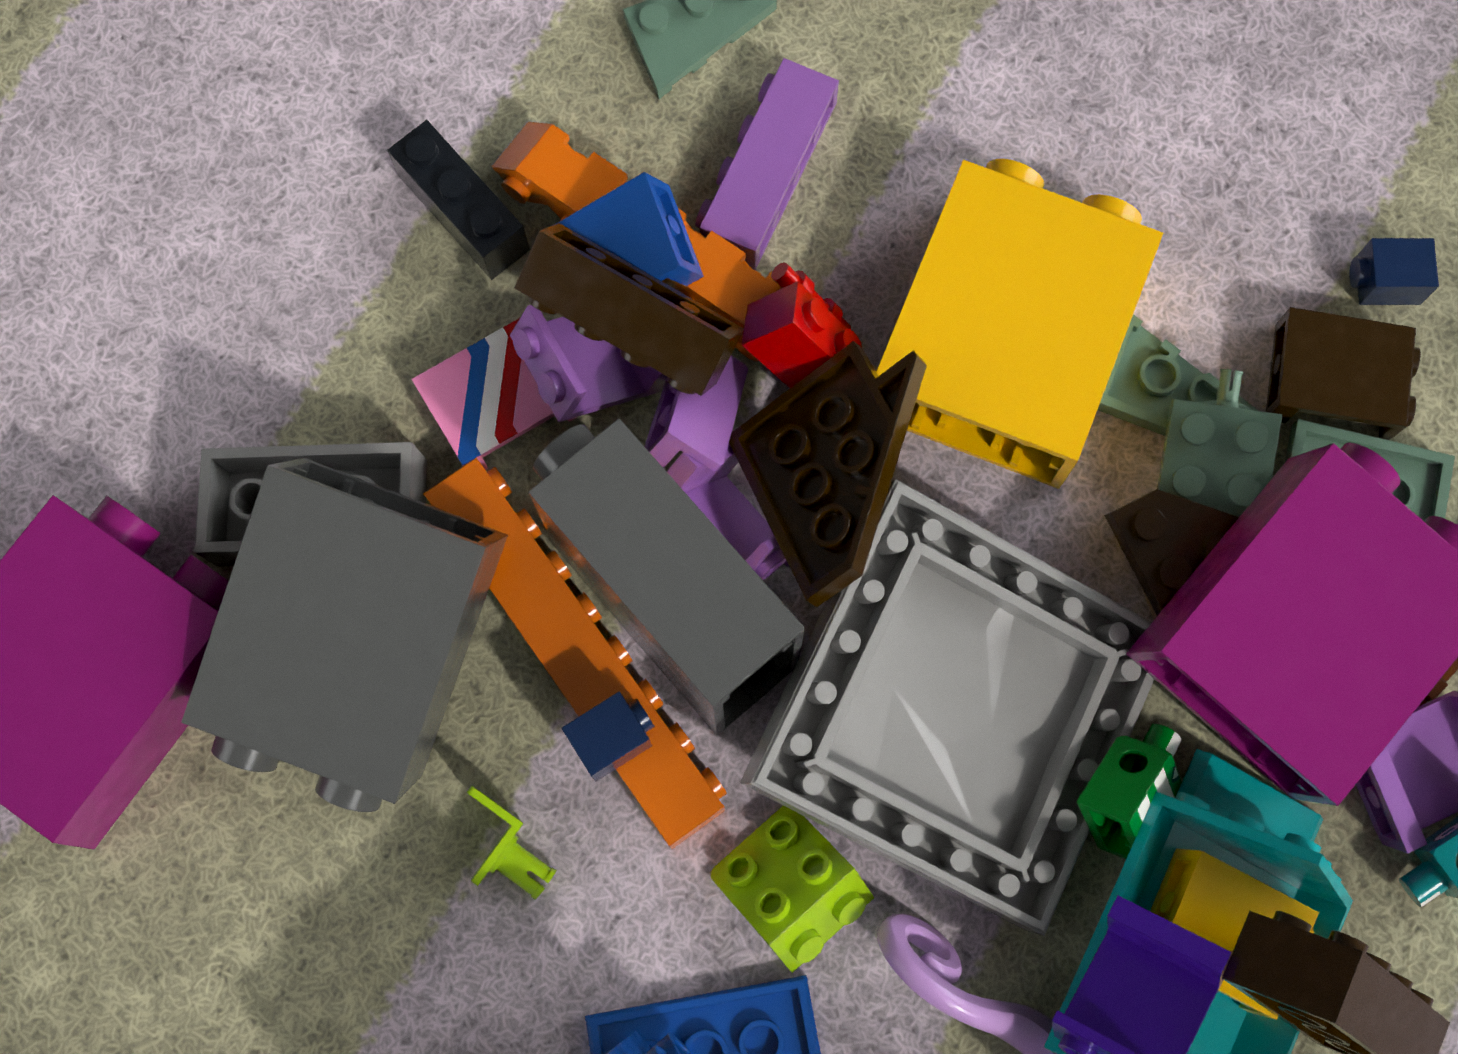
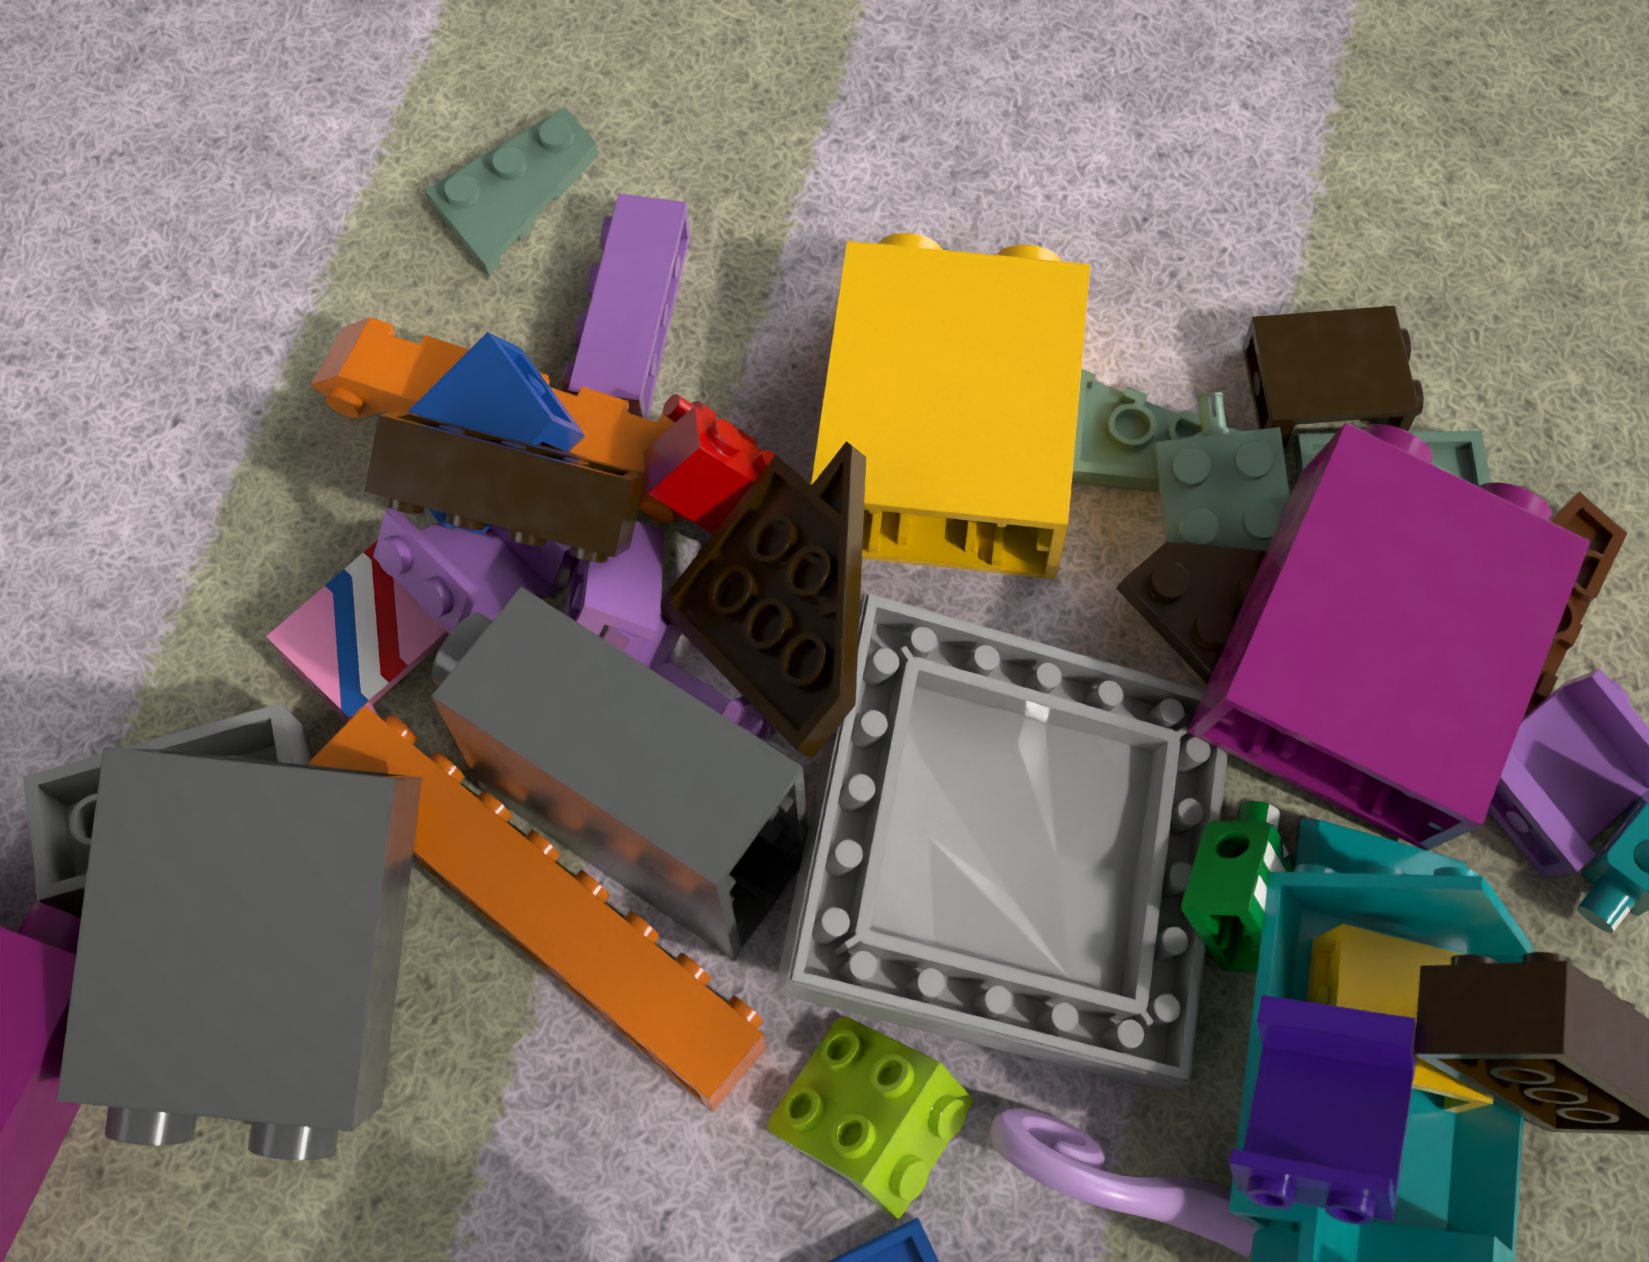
camera: 15 degrees left, 10 degrees down
(459, 199) = (280, 429): black brick -> none
(510, 857) = (511, 1170): lime bracket -> none
(609, 735) = (601, 980): dark blue brick -> none
(1395, 271) = (1353, 258): dark blue brick -> none

